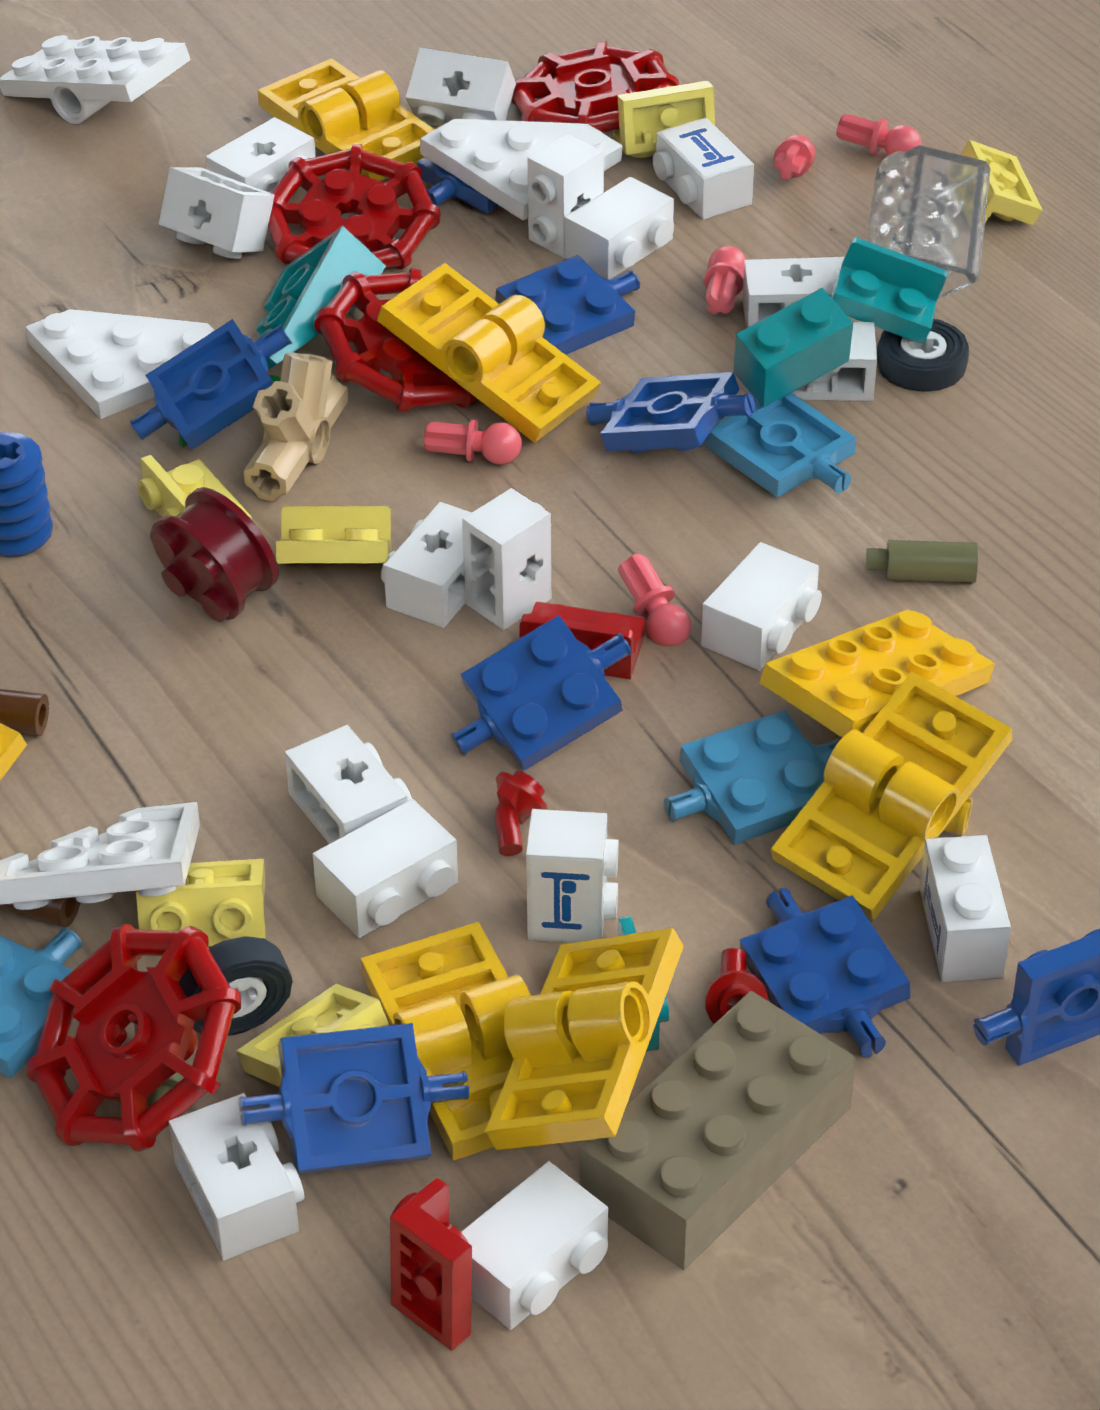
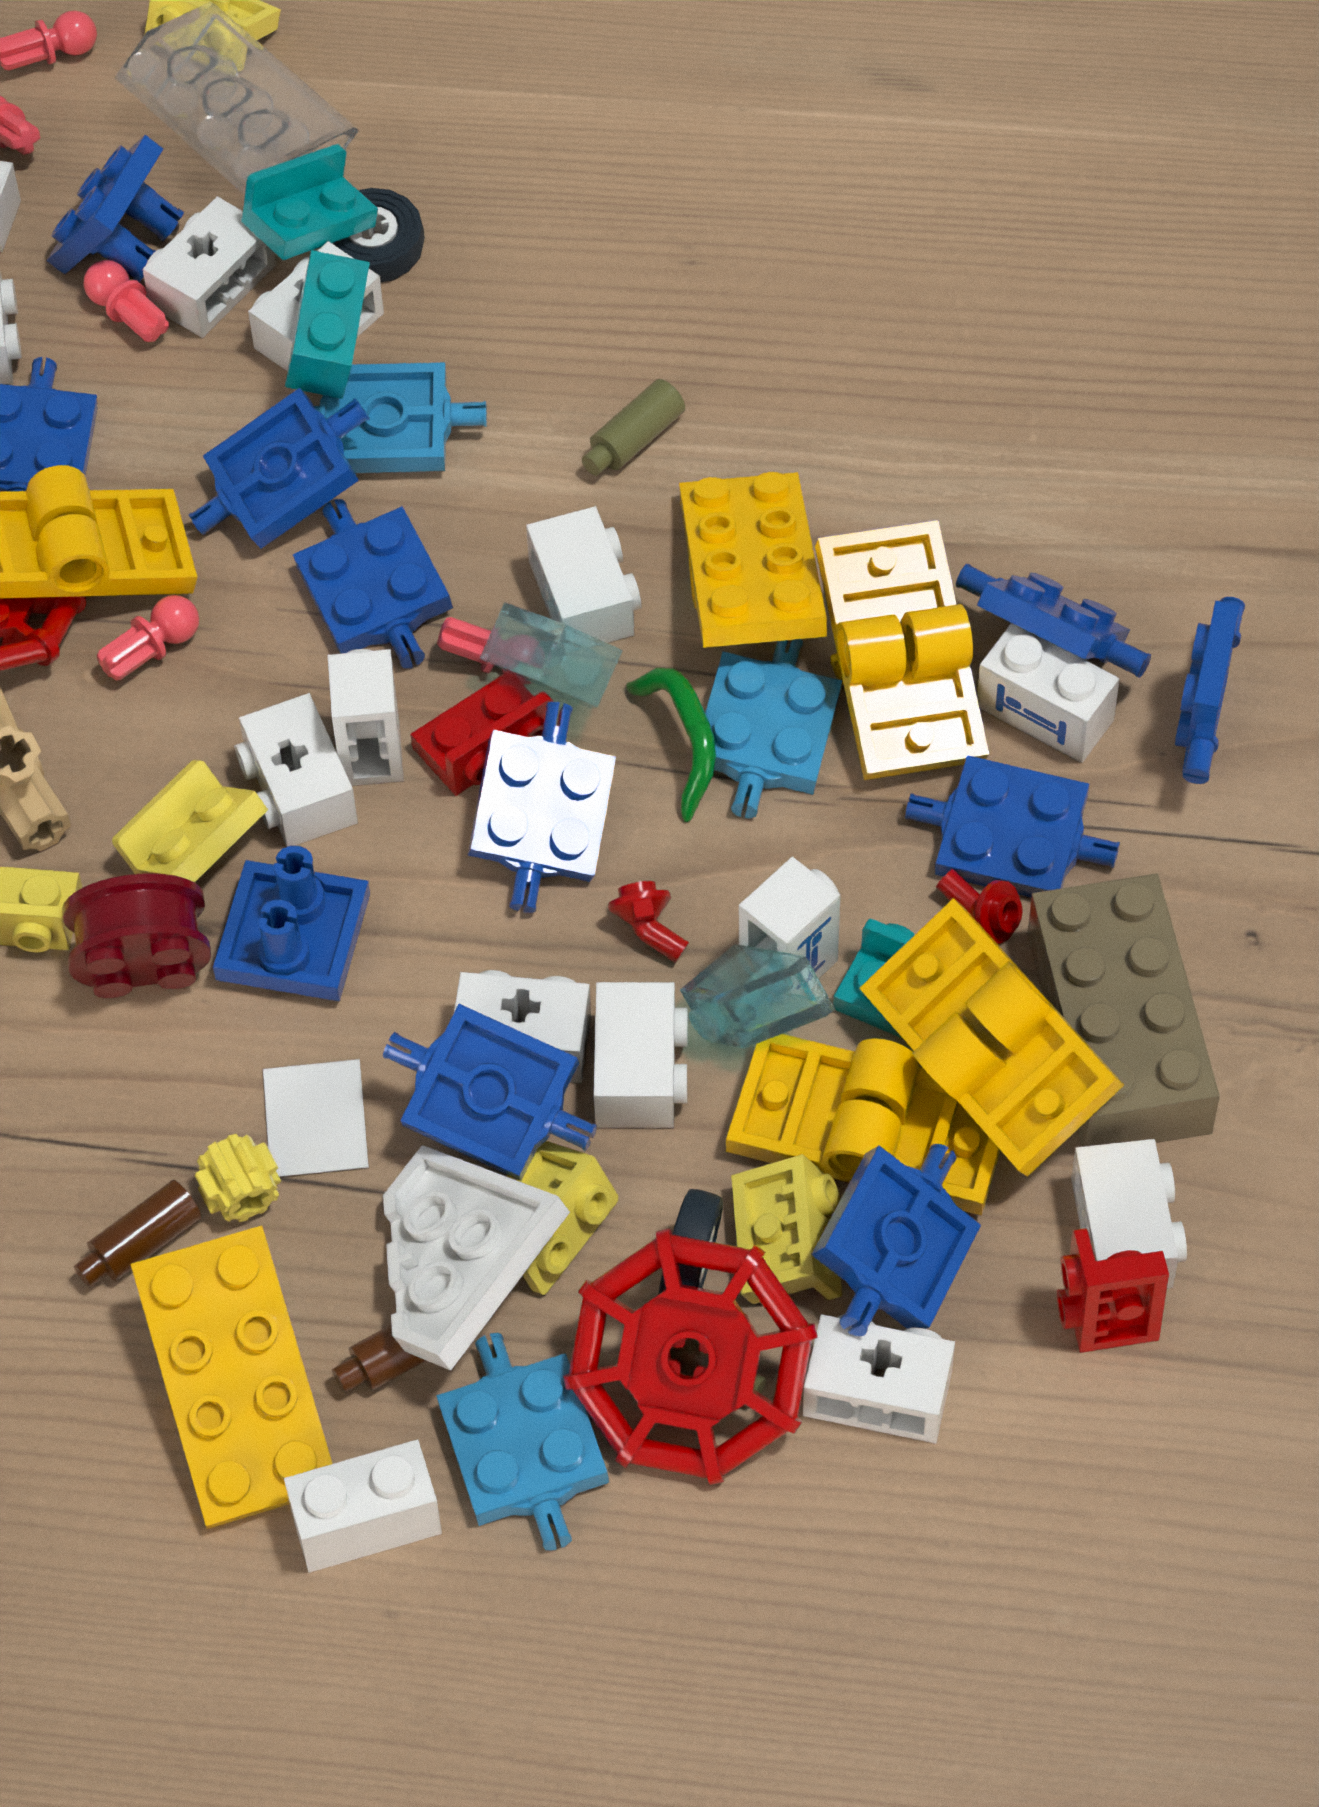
camera: 50 degrees left, 15 degrees up
(76, 723) = (237, 1178): none -> light yellow gear
(178, 747) = (316, 1117): none -> white sticker
(256, 794) = (489, 1091): none -> blue plate
(311, 634) = (292, 927): none -> blue plate
(485, 890) = (754, 996): none -> clear light blue slope
(642, 515) = (373, 582): none -> blue plate
(670, 626) = (551, 655): none -> clear light blue slope
(695, 728) = (695, 725): none -> green animal
(766, 219) = (106, 198): none -> blue plate
(1030, 866) = (1040, 609): none -> blue plate

